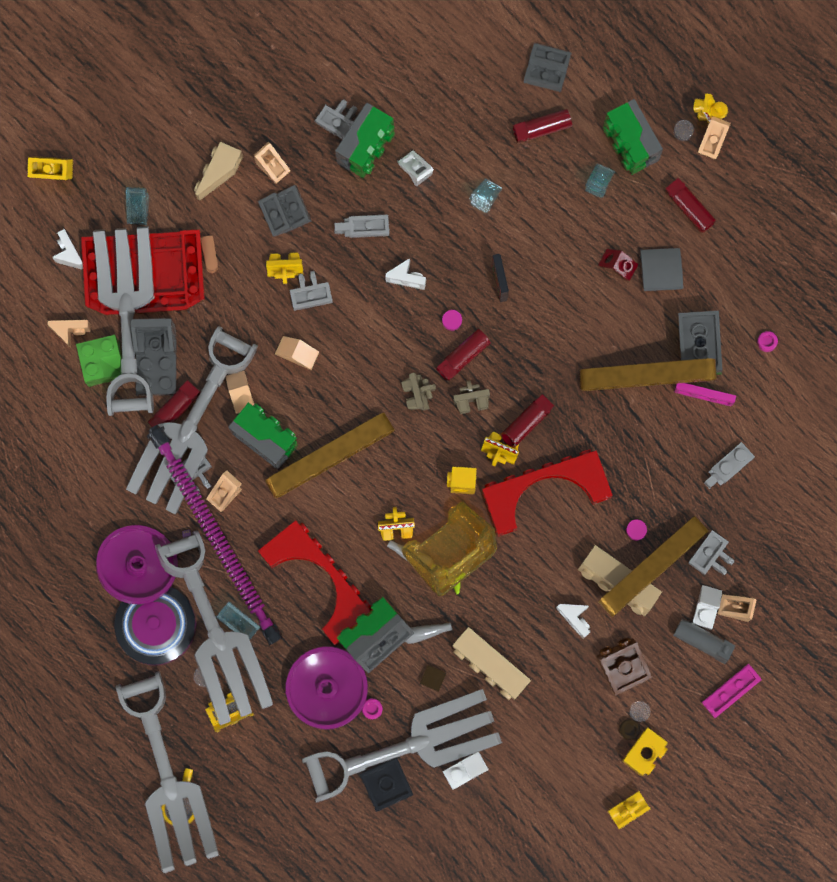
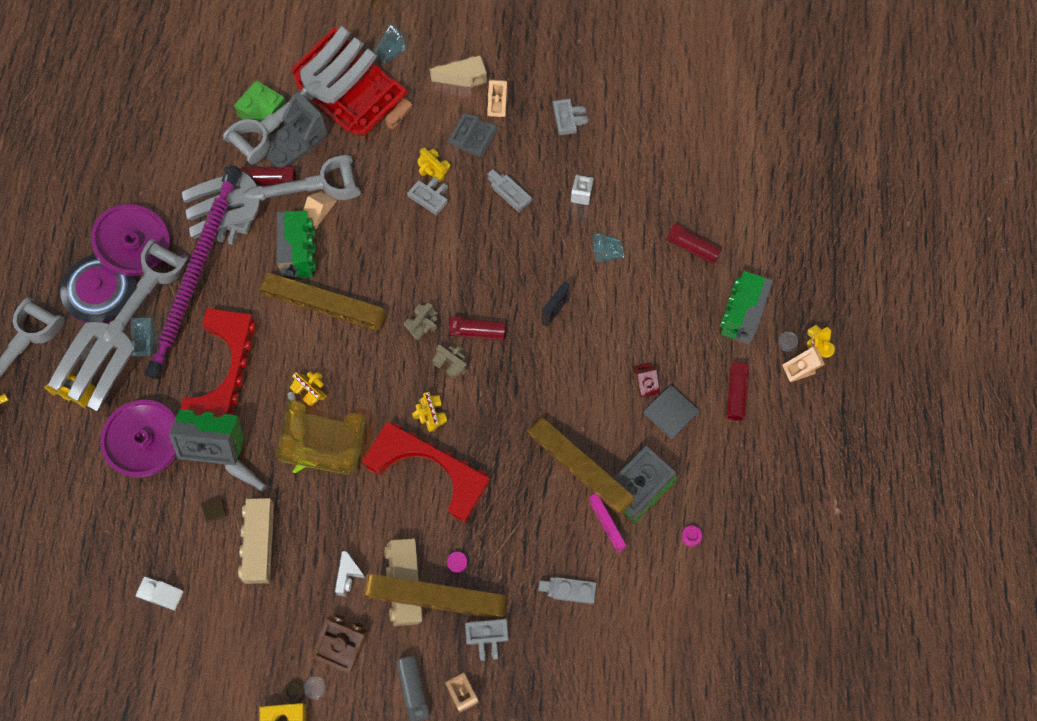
camera: 45 degrees right, 10 degrees down
(65, 327) = (264, 70): light nougat slope -> none
(69, 256) = (324, 27): white slope -> none
(224, 491) = (235, 254): light nougat slope -> none
(297, 352) = (379, 222): light nougat slope -> none
(365, 140) = (568, 139): green piece -> none
(372, 709) = (154, 485): dark pink tile -> none
(386, 784) = (102, 544): black tile -> none
(400, 276) = (498, 241): white slope -> none
(420, 742) = (154, 541): light grey piece -> none
(452, 320) = (496, 301): dark pink tile -> none
(462, 480) = (381, 402): yellow brick -> none
(526, 421) = (467, 411): dark red piece -> none
(547, 67) = (738, 214): dark grey slope -> none
(599, 180) = (693, 314): clear light blue slope -> none
(707, 607) = (443, 669): white slope -> none

